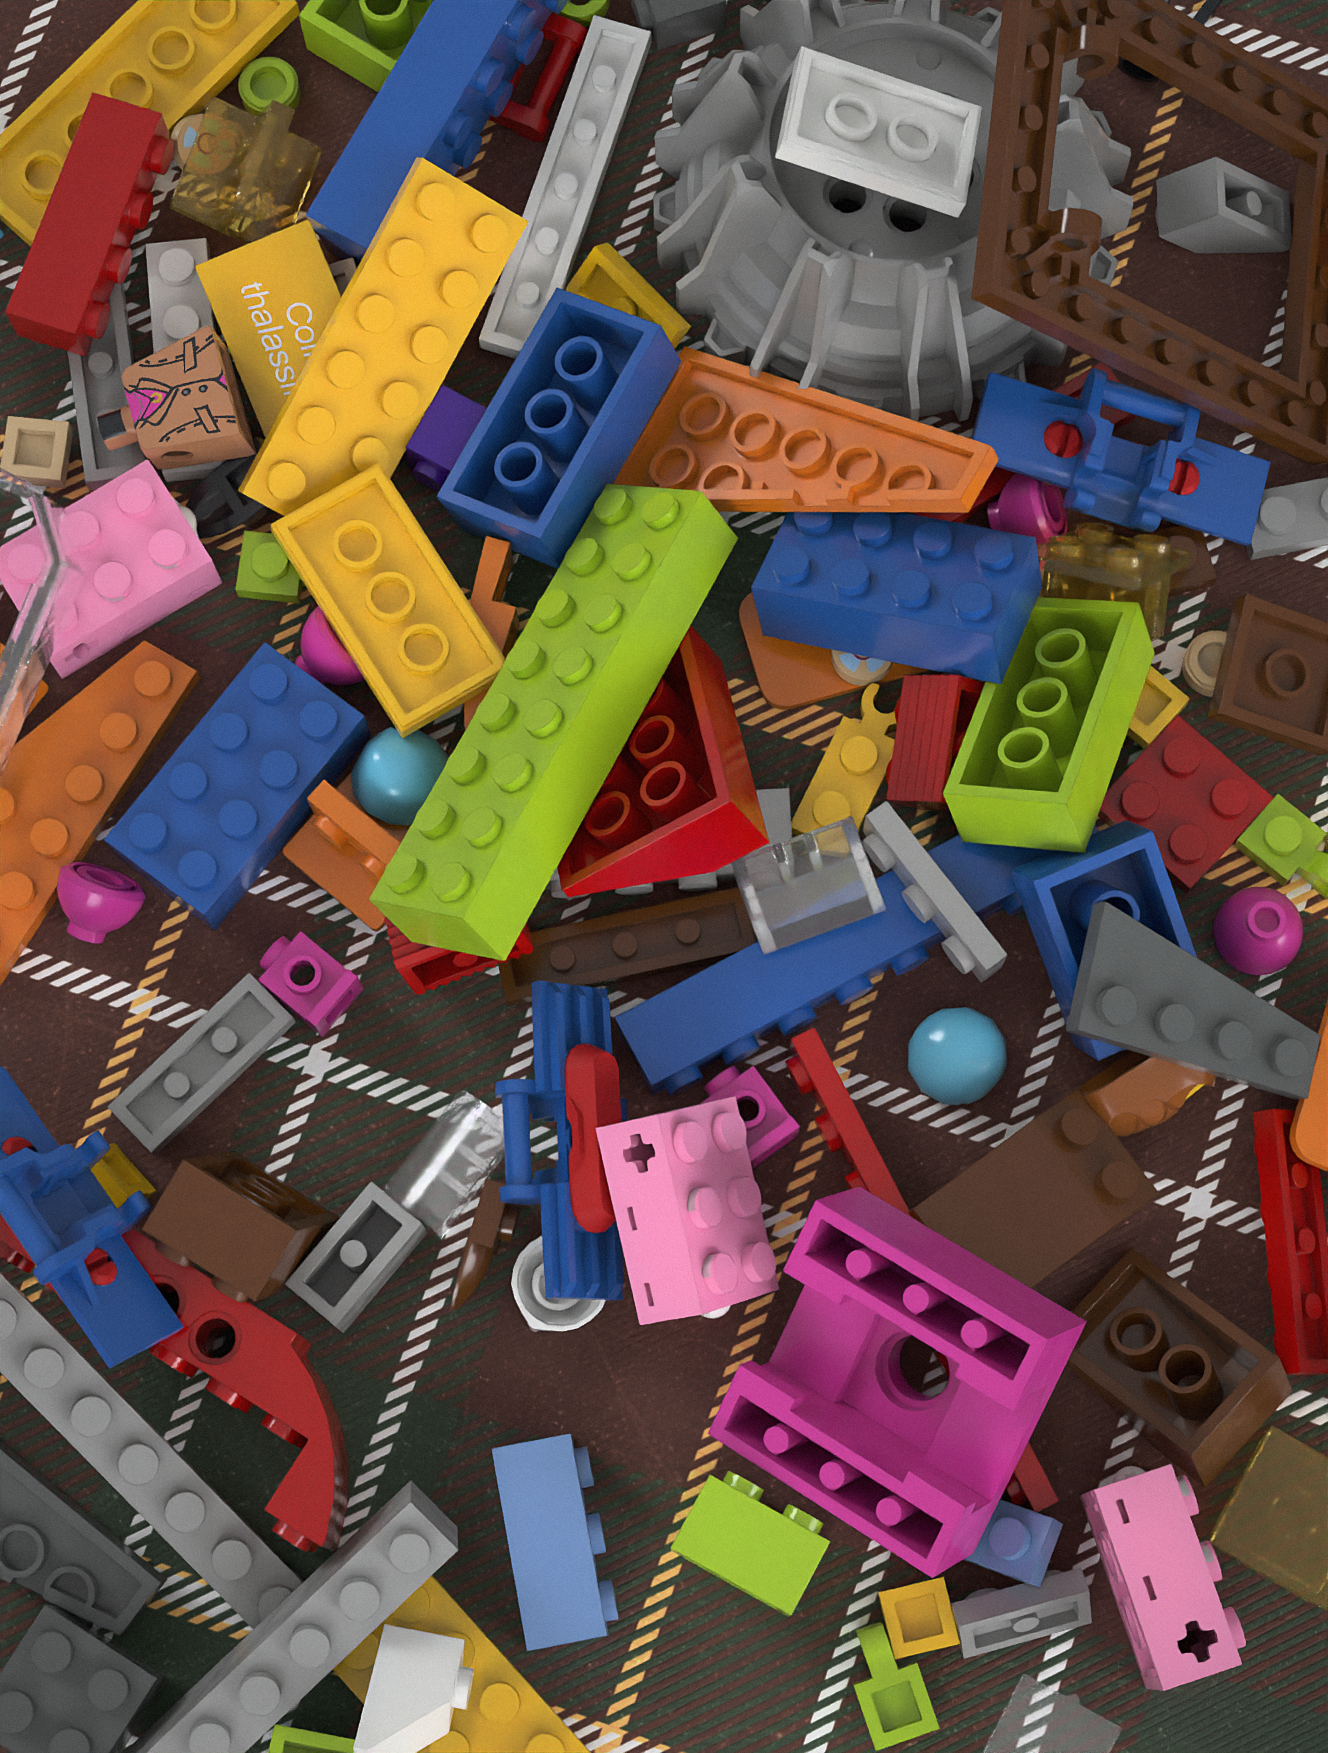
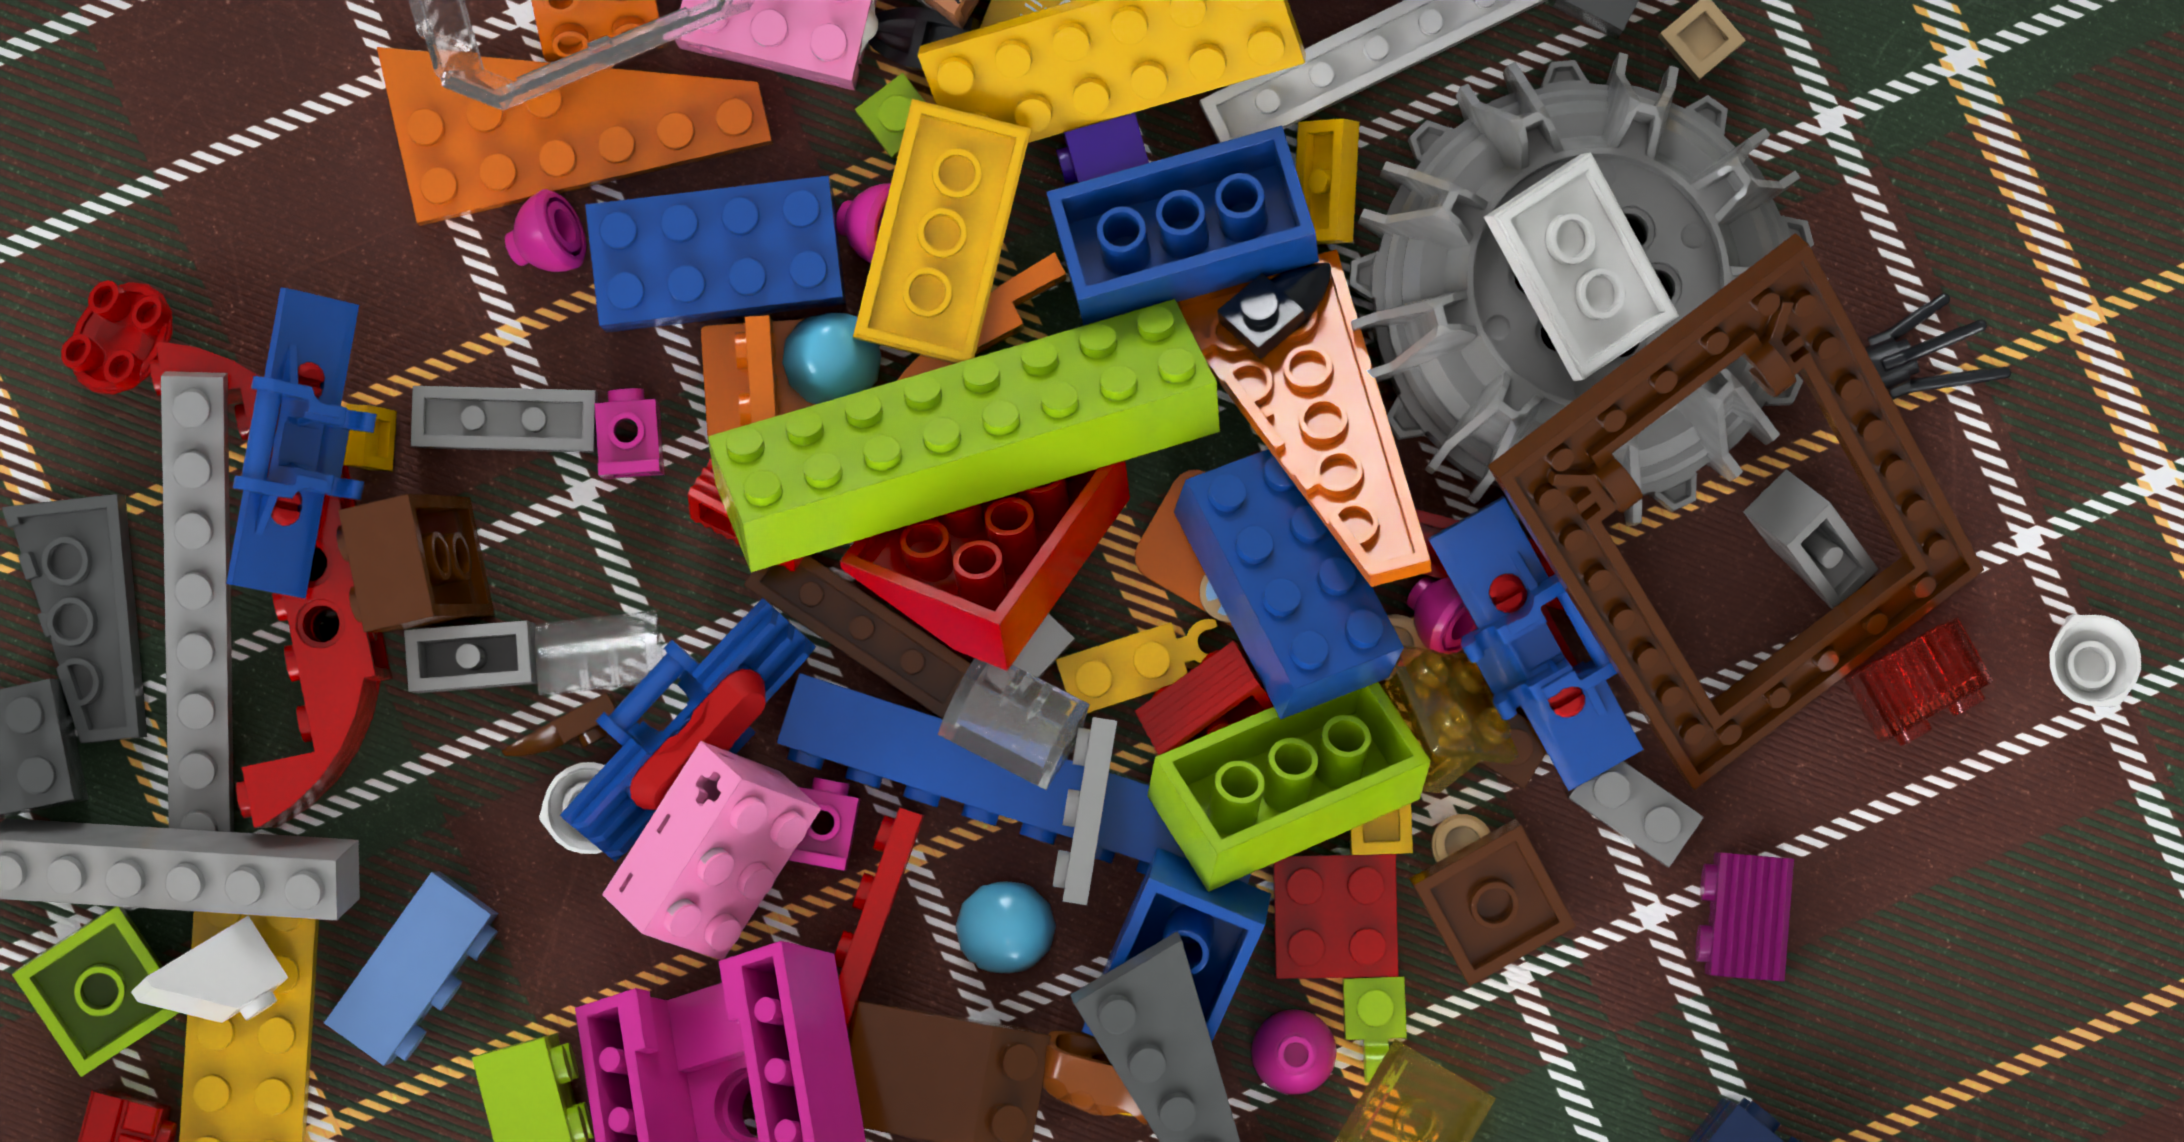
camera: 45 degrees right, 10 degrees up
(684, 422) = (1274, 307): none -> black plate

